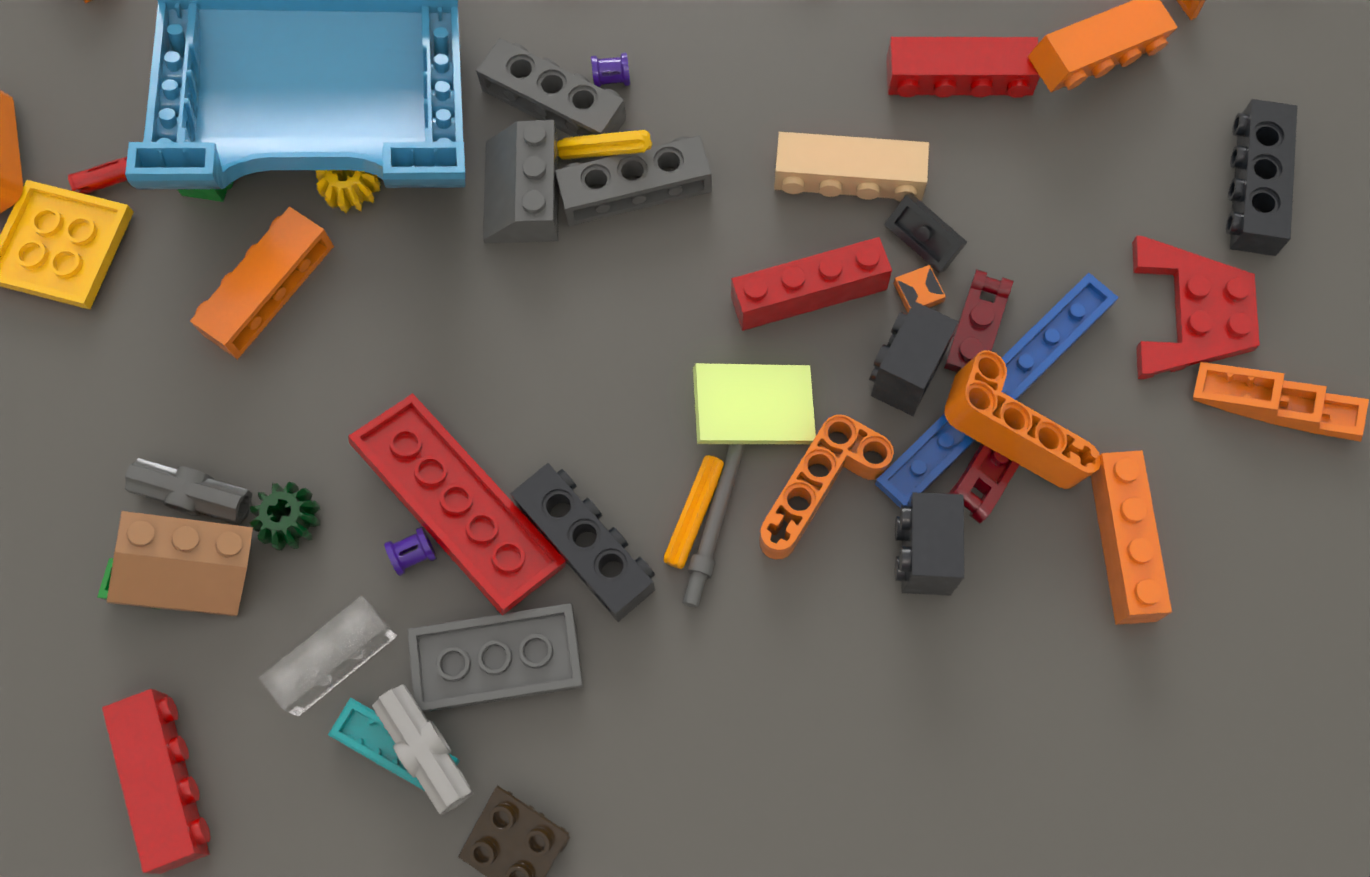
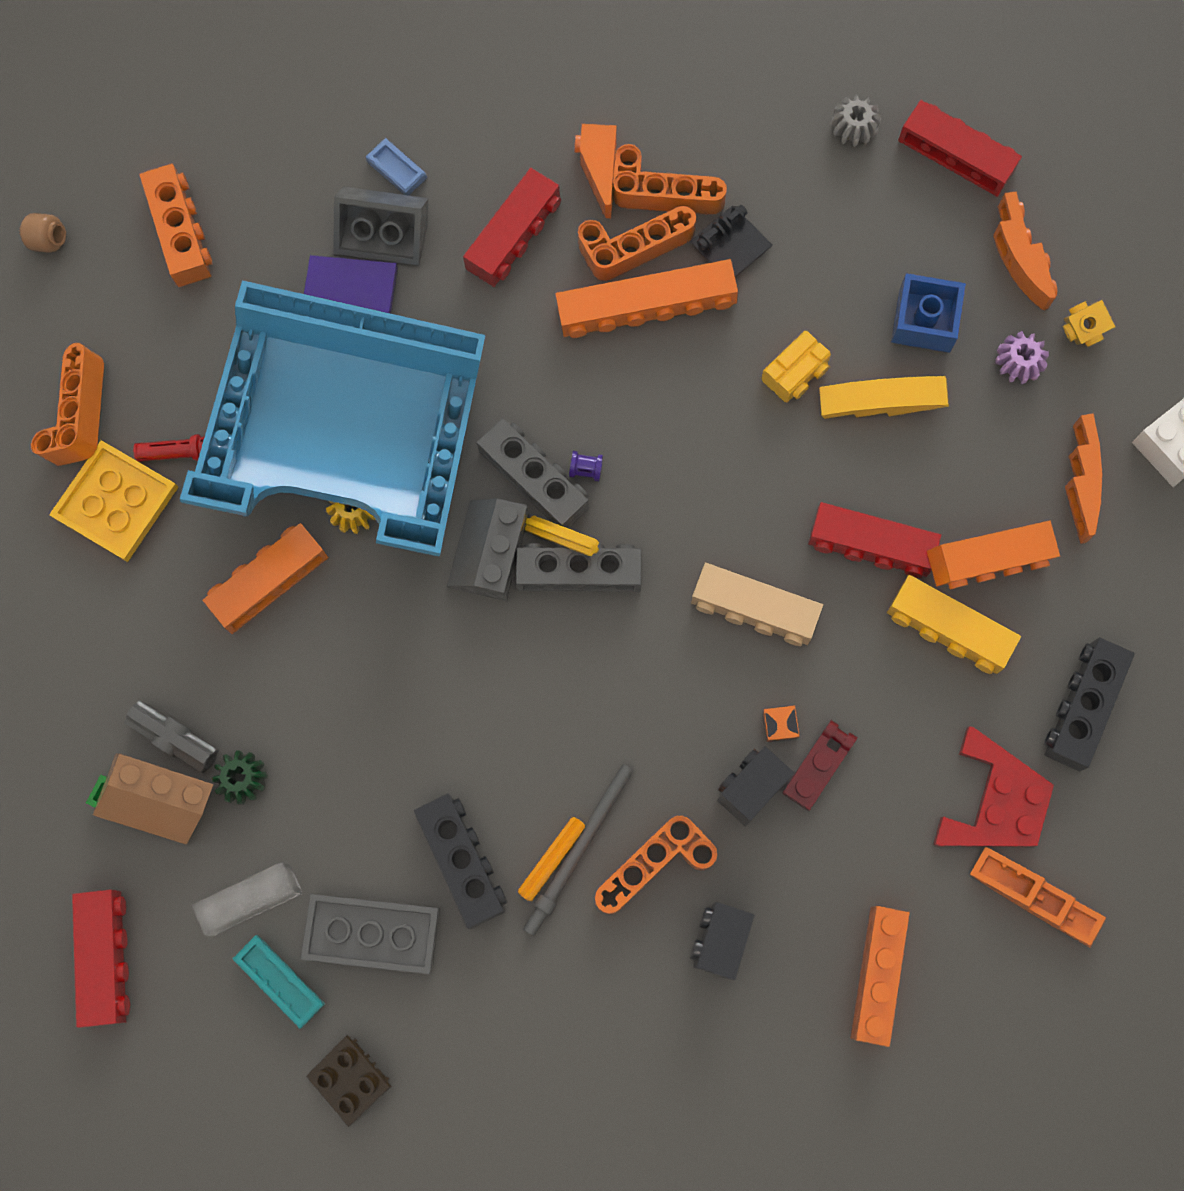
camera: 15 degrees right, 5 degrees up
(418, 540) = (317, 828): dark purple bush -> none
(422, 749) = (298, 992): light grey piece -> none
(457, 503) = (371, 803): red plate -> none
(753, 404) = (621, 786): yellowish green tile -> none
(810, 283) = (694, 697): red brick -> none
(925, 233) = (799, 678): black plate -> none
(990, 475) = (789, 891): dark red plate -> none
(1014, 430) = (849, 897): orange beam -> none
(1025, 365) = (816, 826): blue plate -> none
(1082, 132) = (953, 625): none -> yellow brick

